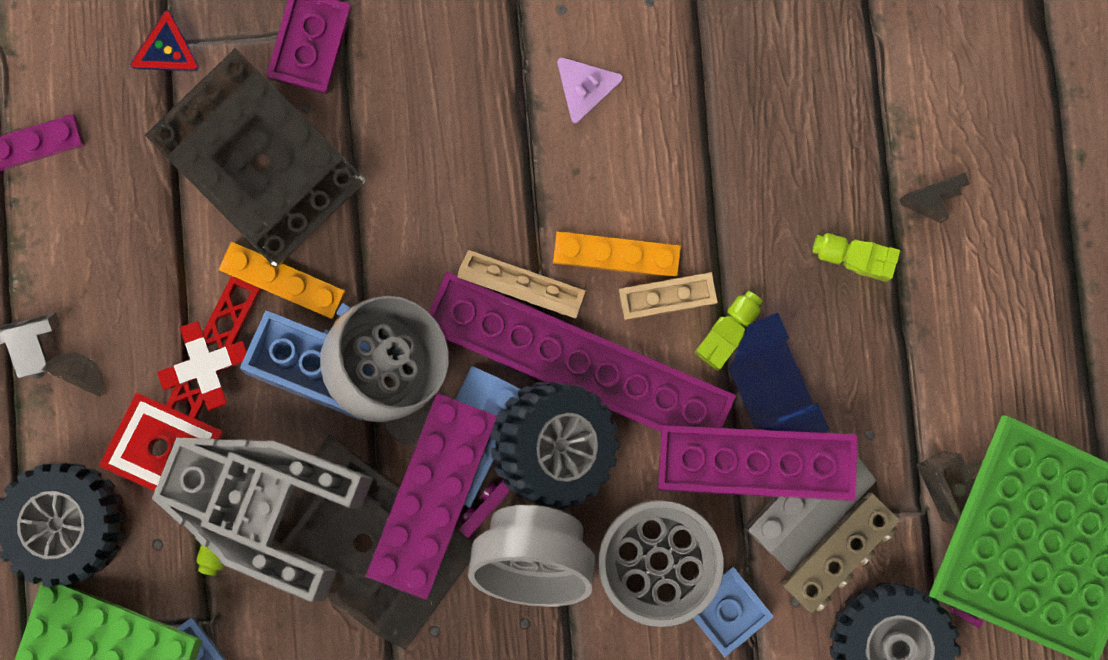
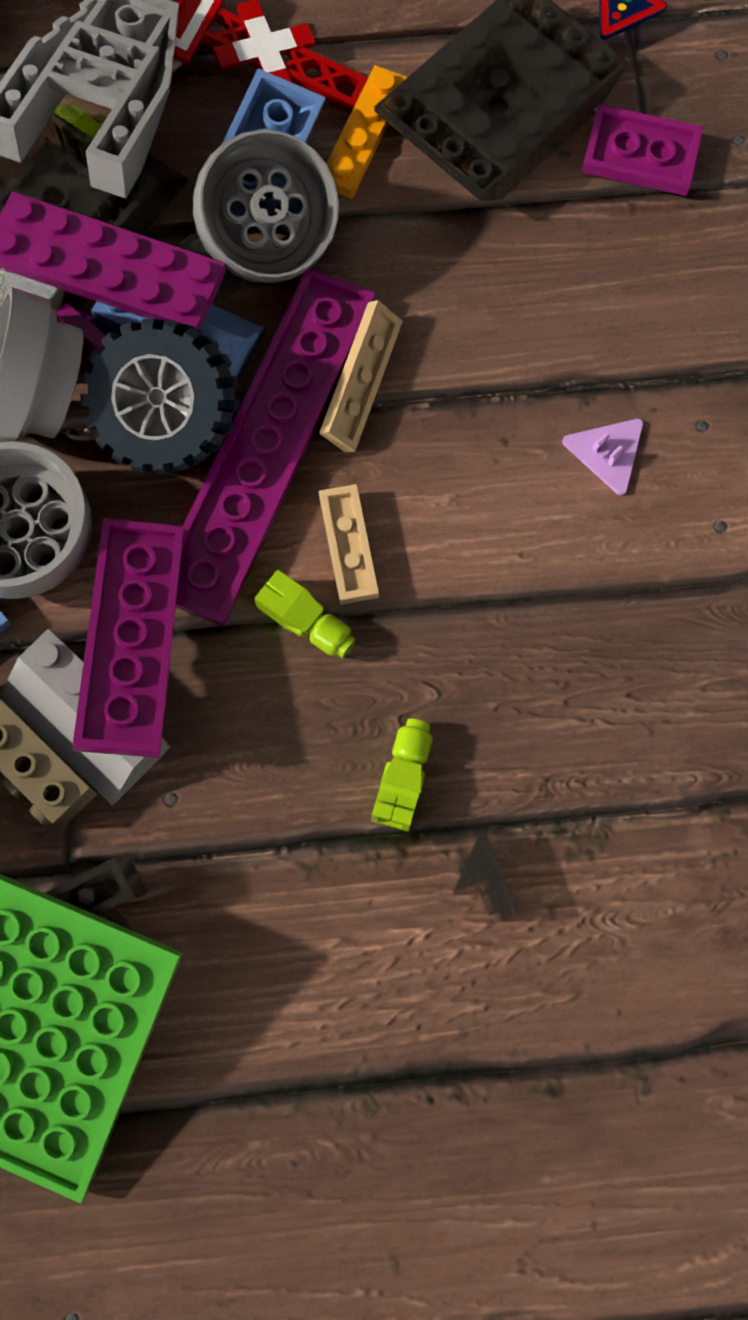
camera: 80 degrees right, 10 degrees down
(616, 254) = (400, 488): light orange plate -> none
(772, 382) = (238, 671): clear blue piece -> none

